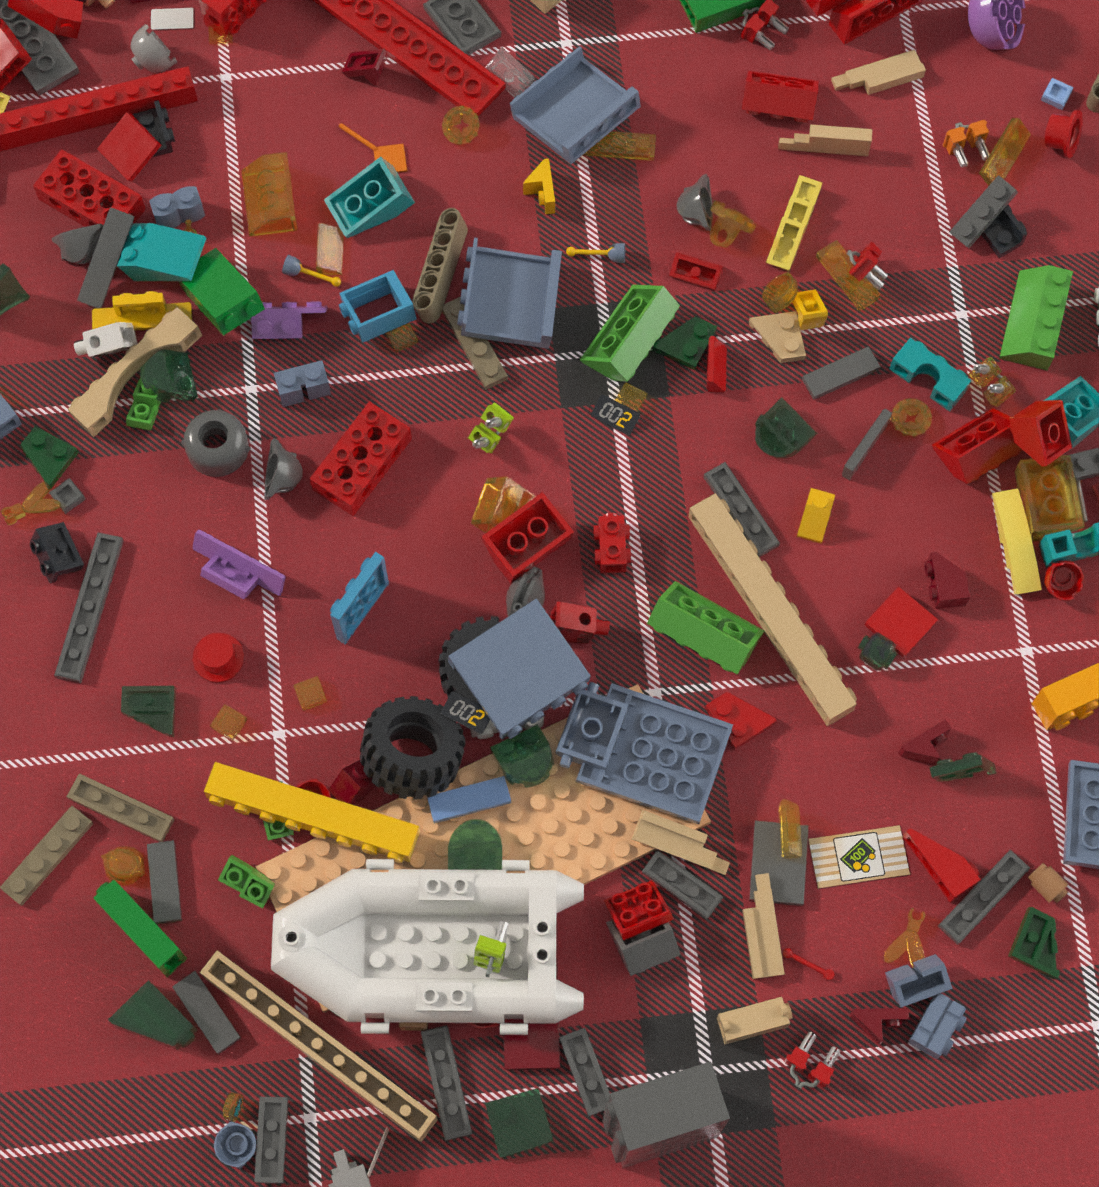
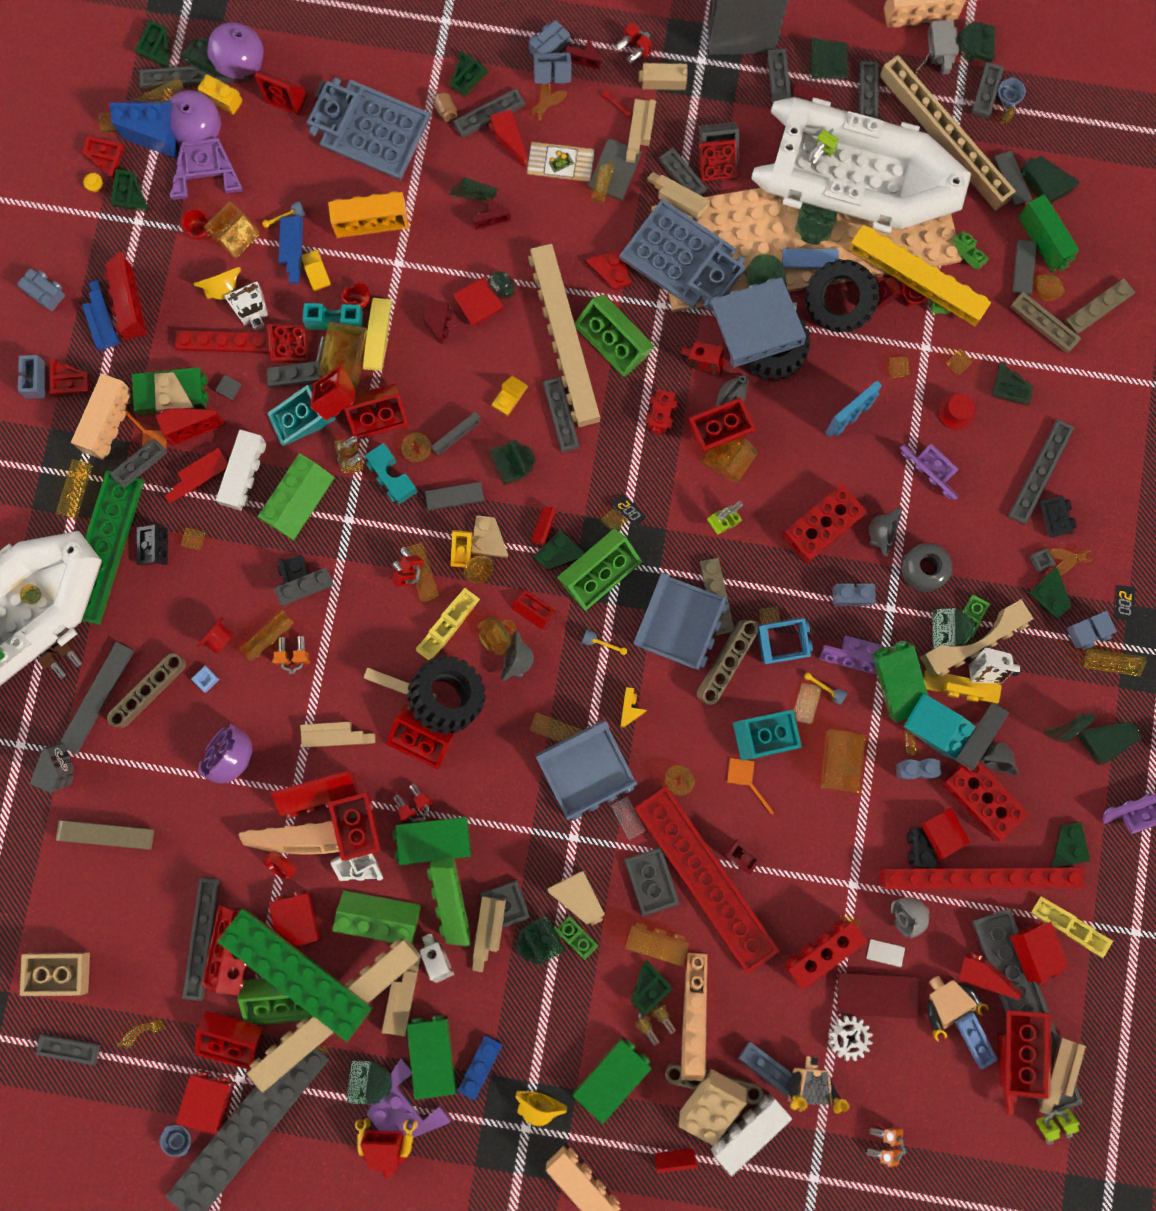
camera: 165 degrees left, 10 degrees up
(465, 712) = (803, 308): black sticker -> none
(741, 111) = (462, 679): none -> black tyre

